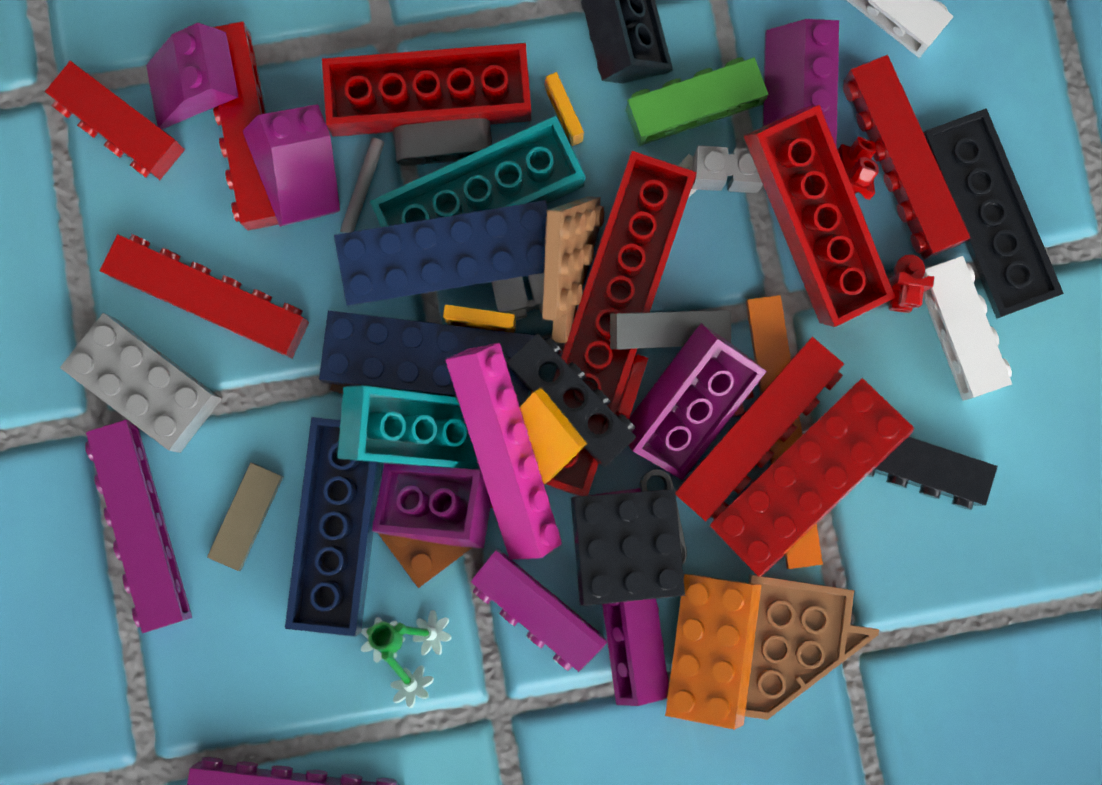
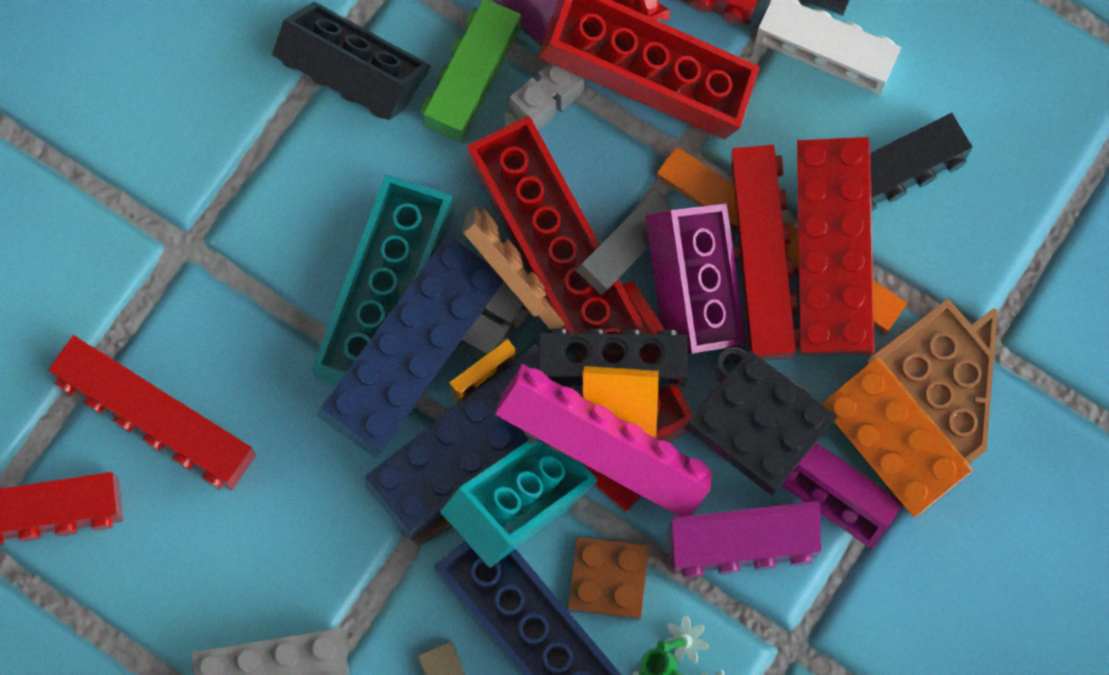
camera: 45 degrees left, 10 degrees down
(191, 74) = (73, 414): magenta slope -> none
(205, 296) = (252, 567): red brick -> none
(295, 163) = (223, 397): magenta slope -> none
(362, 185) = (287, 371): light grey bar -> none
(426, 86) = (266, 250): red brick -> none
(433, 505) = (589, 539): magenta slope -> none
(440, 141) = (314, 278): dark grey beam -> none
(564, 109) = (377, 165): light orange tile -> none
(909, 284) = (759, 49): red hips -> none

